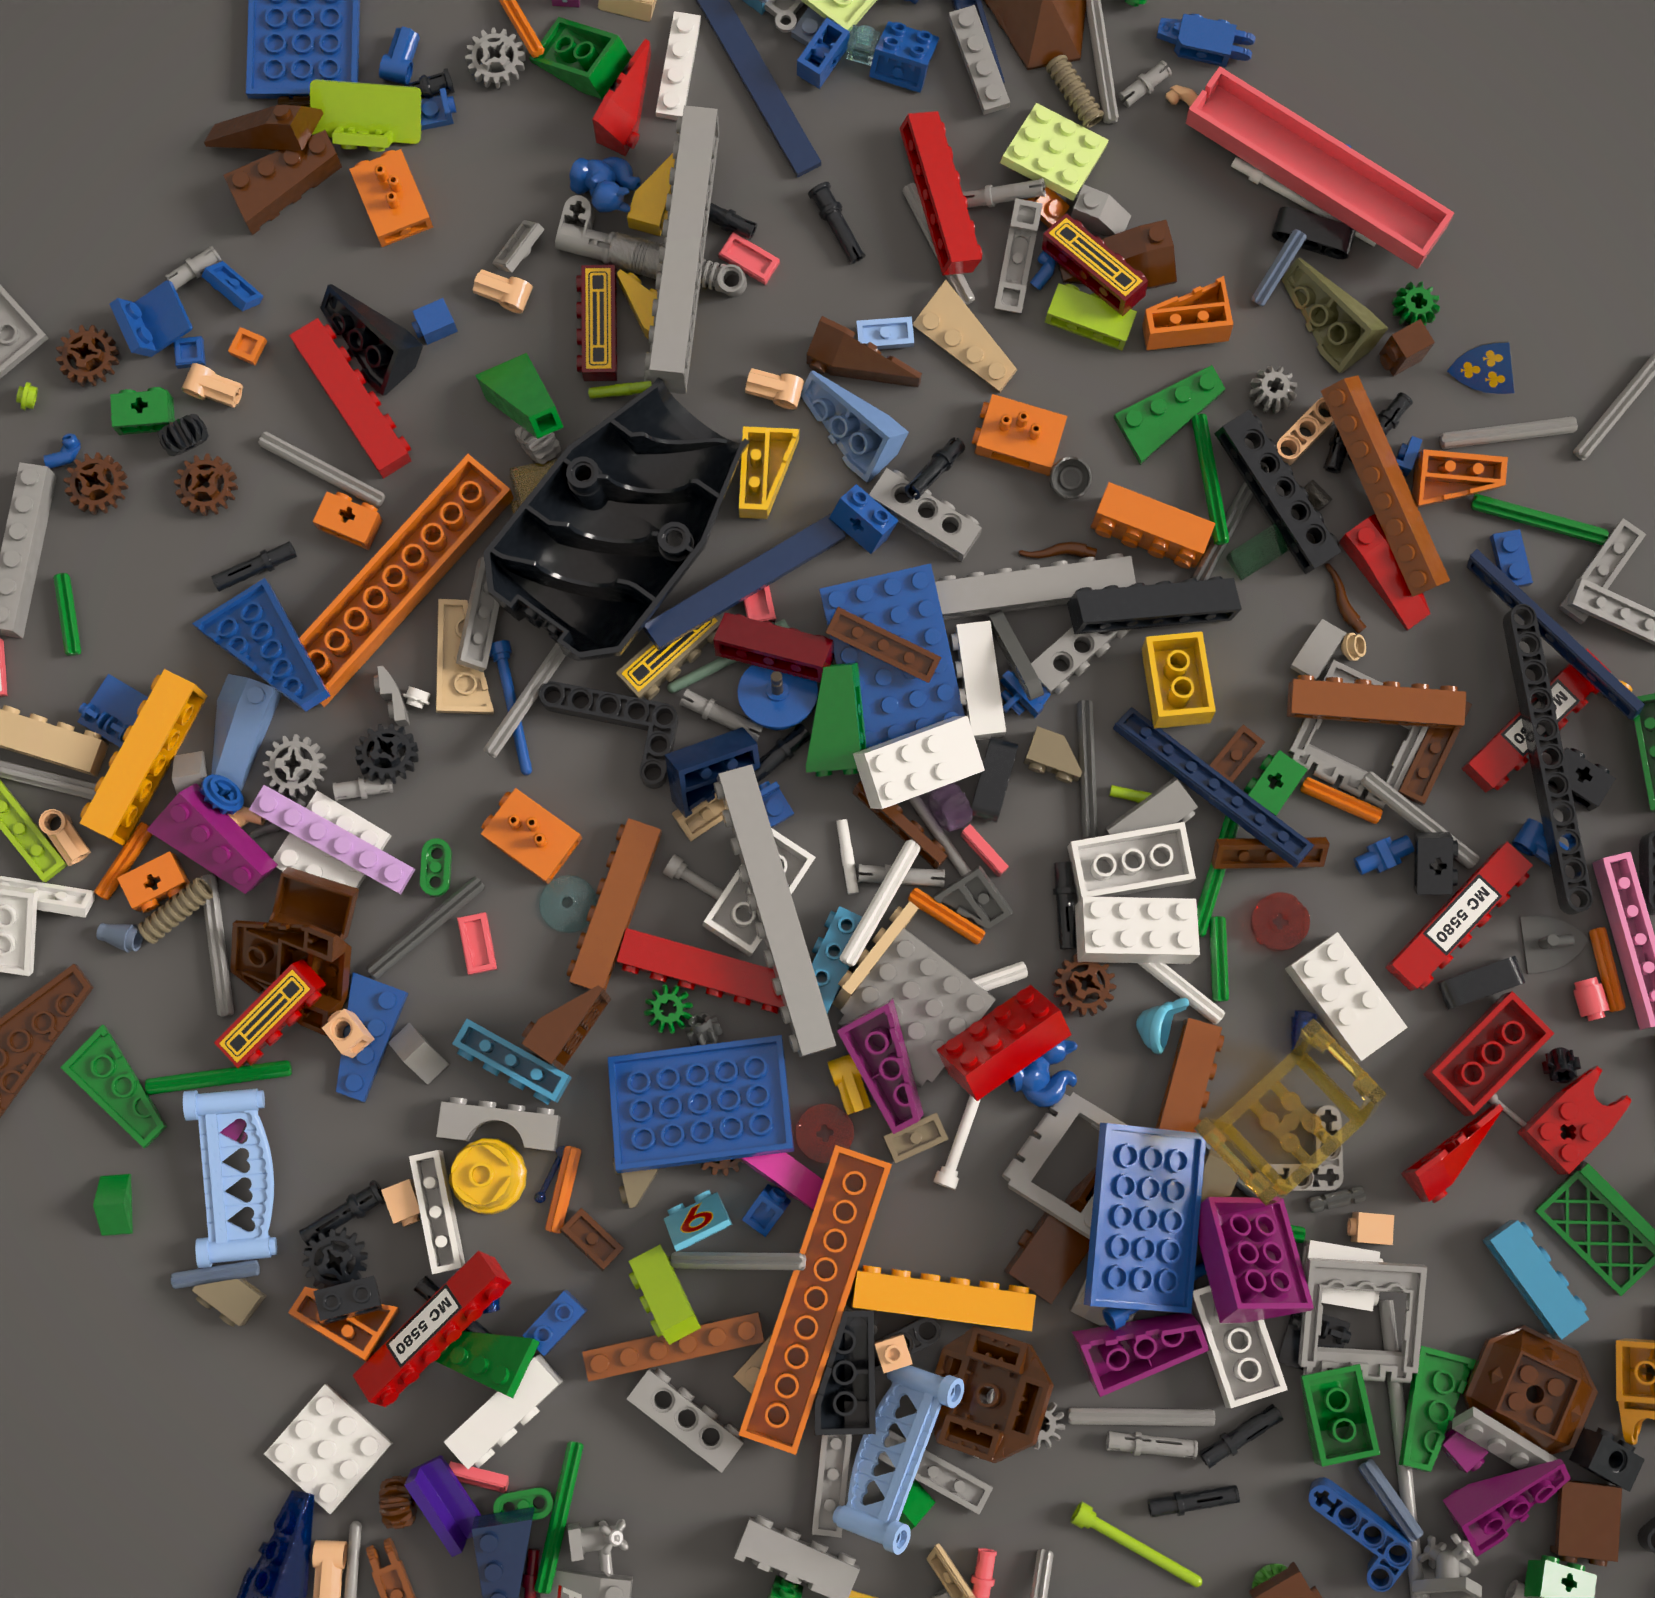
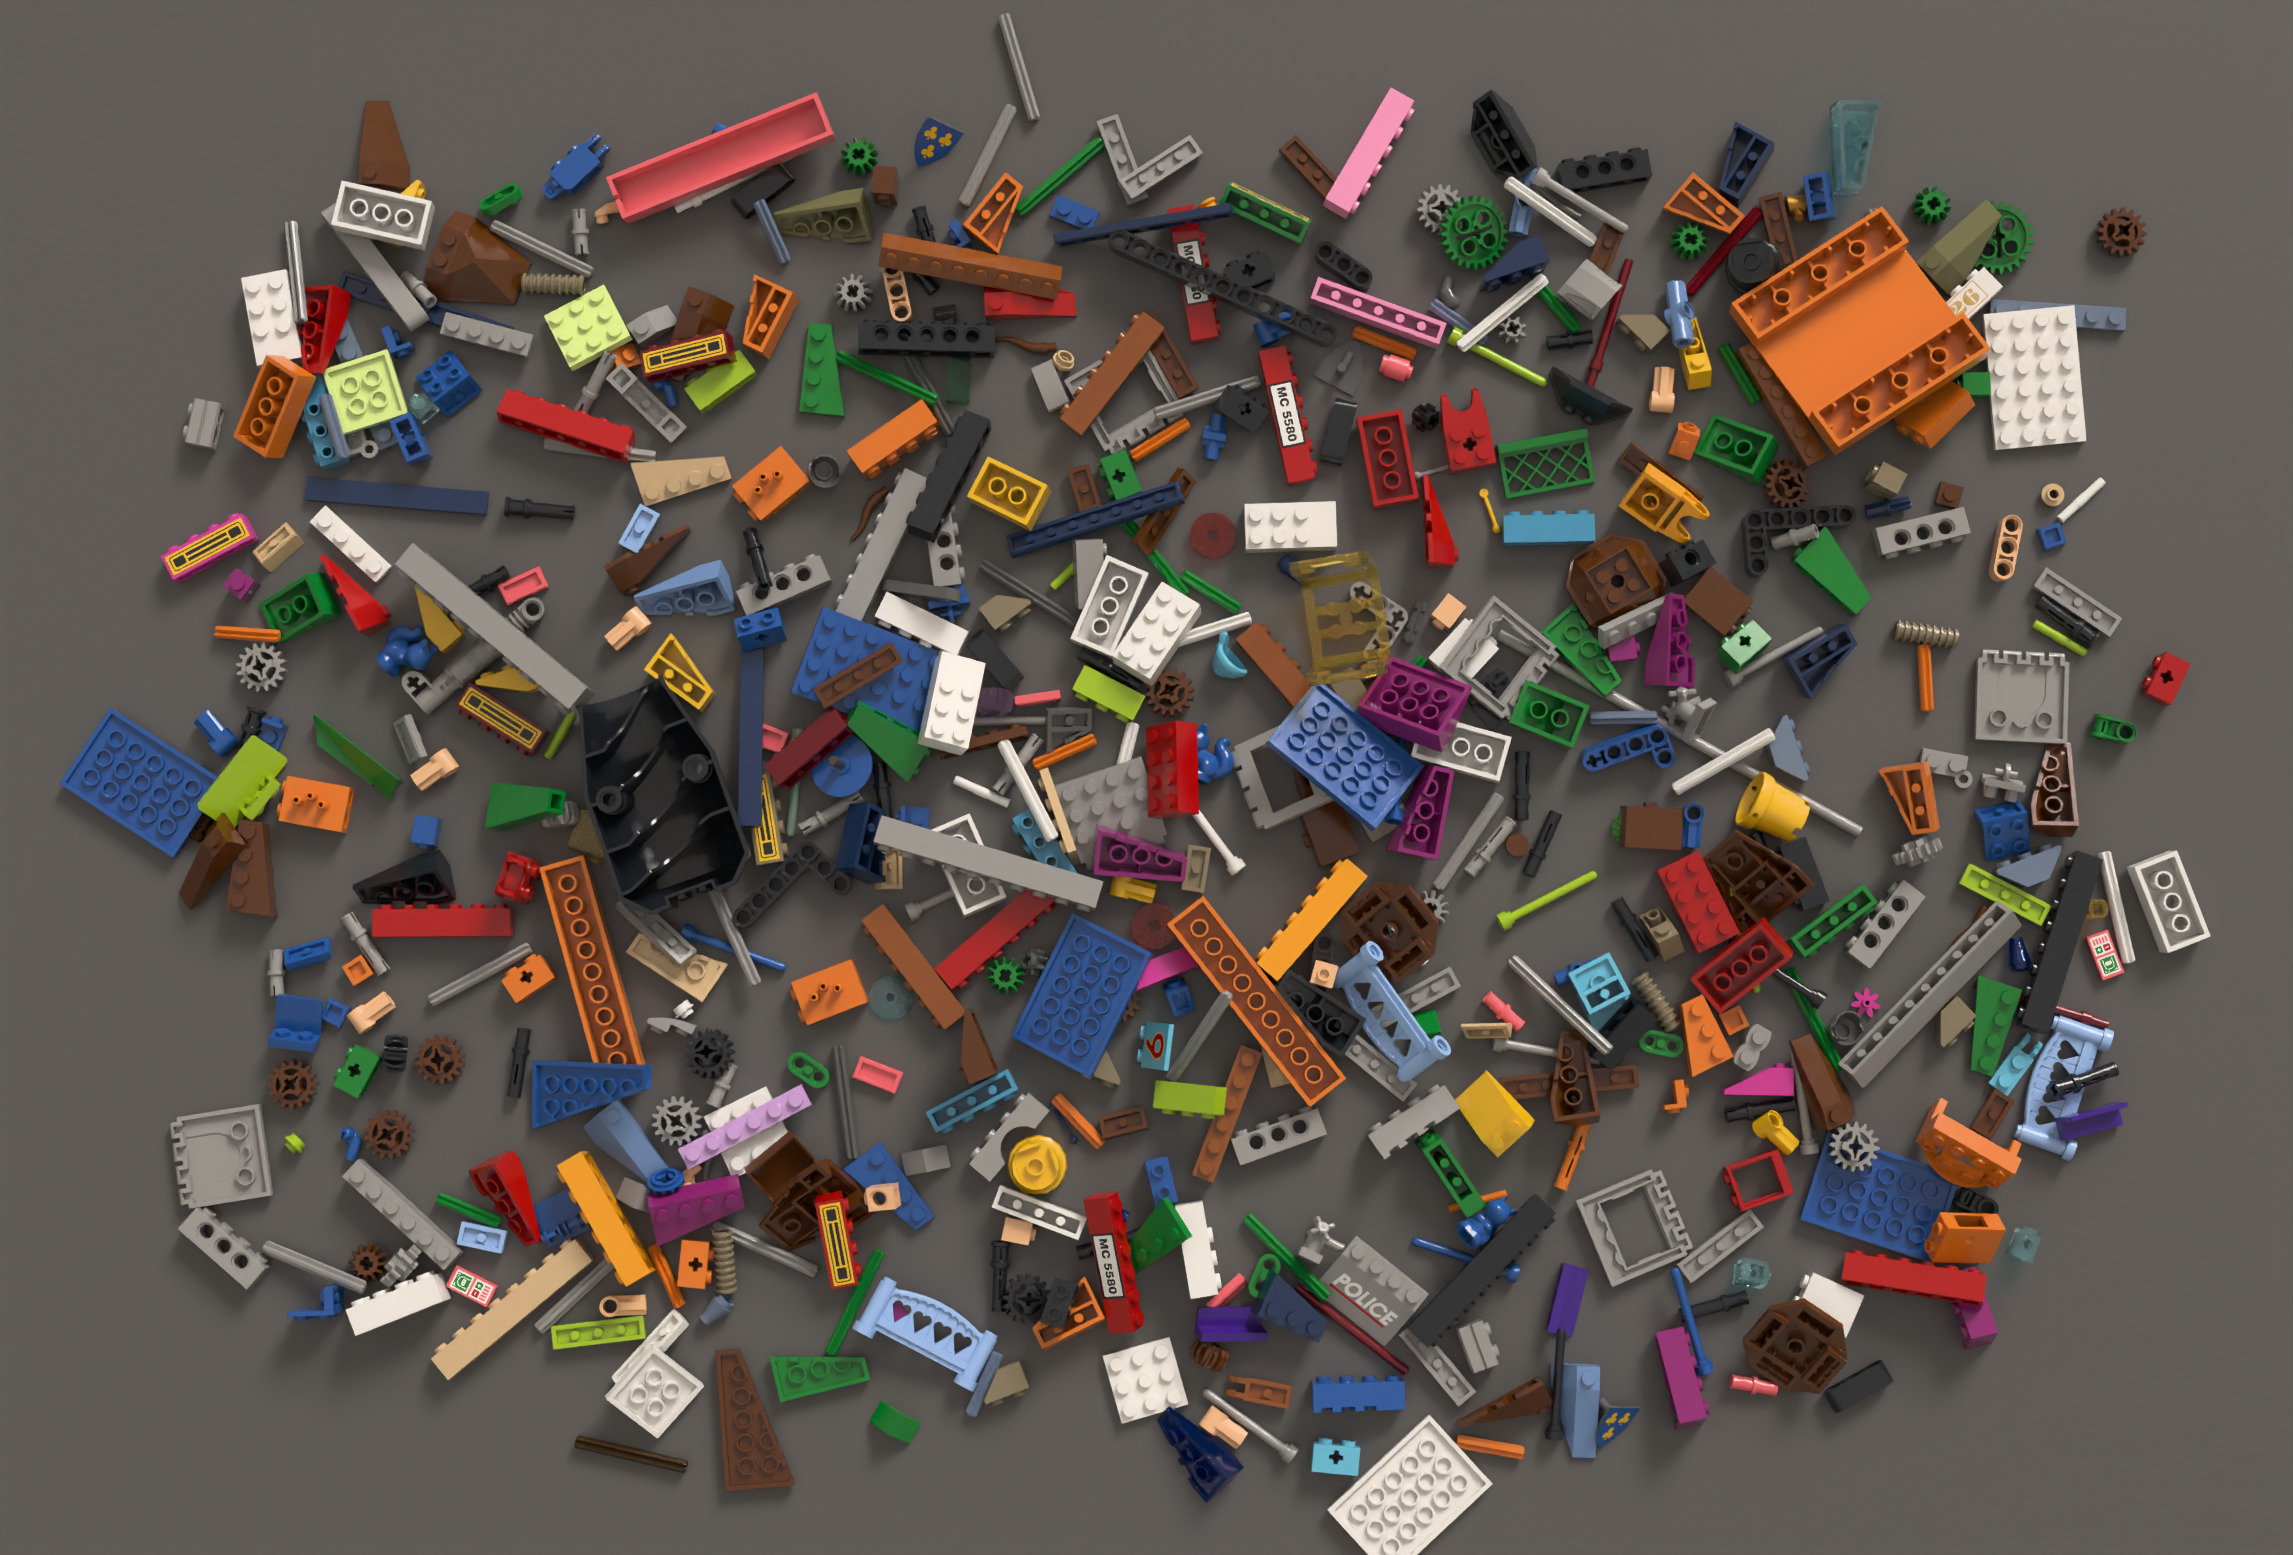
camera: 50 degrees left, 5 degrees up
(47, 645) = (482, 1237): none -> light blue plate
(117, 635) = (507, 1187): none -> red wedge
(283, 326) = (365, 944): none -> light grey pin
(442, 439) = (518, 878): none -> red brick
(464, 206) = (355, 758): none -> green wedge
(1038, 922) = (1108, 694): none -> lime brick
(1173, 1473) = (1516, 845): none -> reddish brown tile
(1523, 1183) = (1483, 494): none -> yellow hinge

